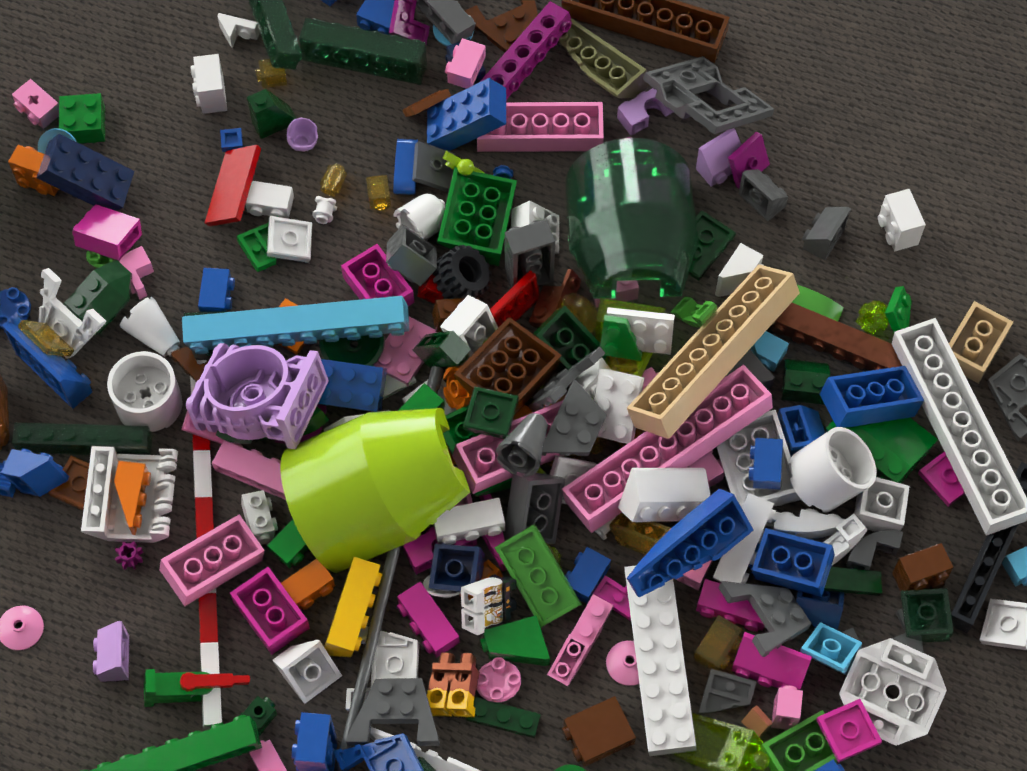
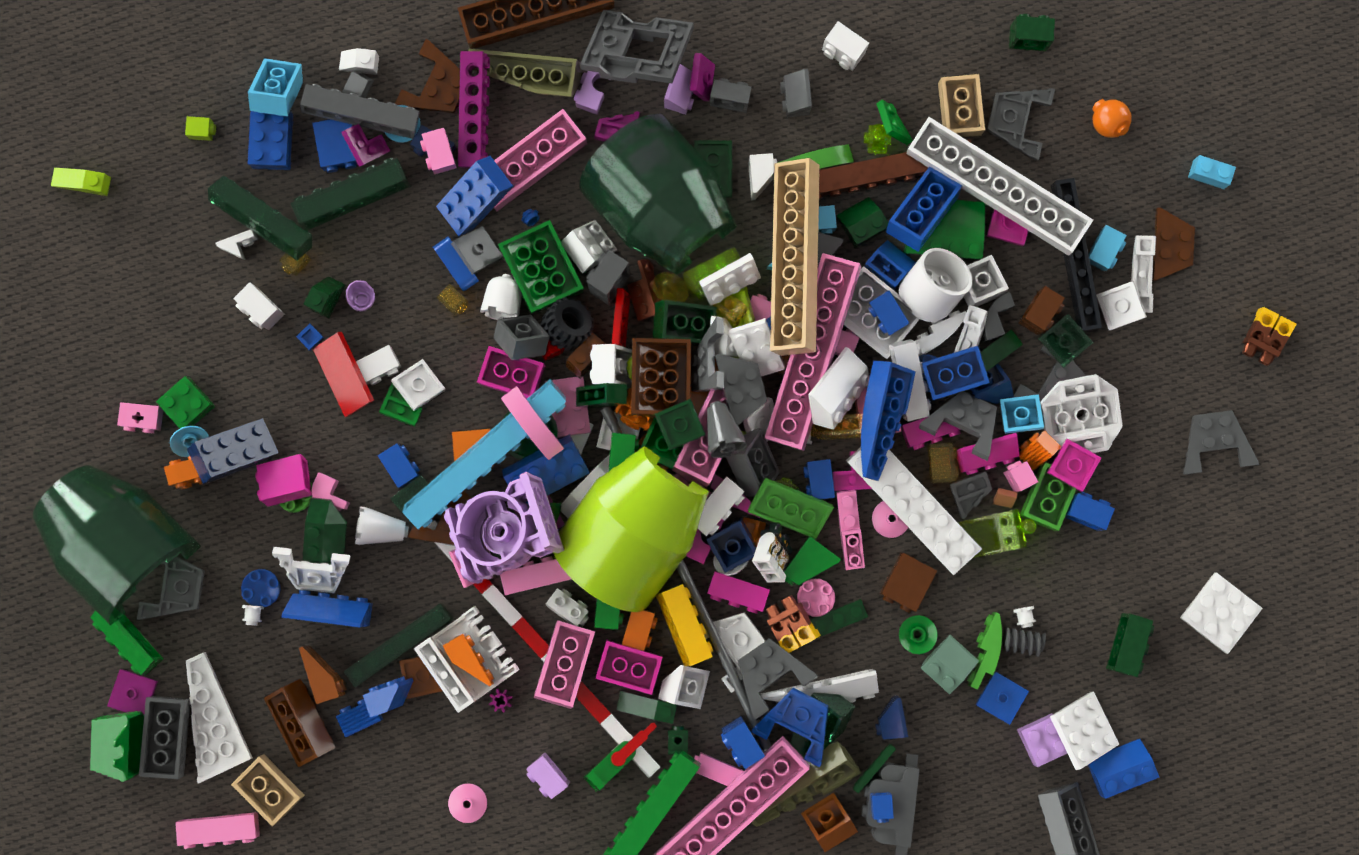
camera: 40 degrees left, 20 degrees up
(45, 338) = (313, 596): clear yellow plate -> none
(147, 377) = (401, 576): white brick -> none
(257, 663) = (646, 707): none -> dark green slope
(324, 209) = (424, 343): white brick -> none
(333, 179) = (411, 314): clear yellow brick -> none
(357, 322) = (532, 423): none -> bright pink slope
(426, 102) = (432, 202): dark orange tile -> none
(464, 166) = (504, 235): lime plate -> none
(618, 339) = (721, 297): green wing -> none
(693, 313) = (754, 232): bright green slope -> none
(824, 695) = (1038, 449): none -> orange brick

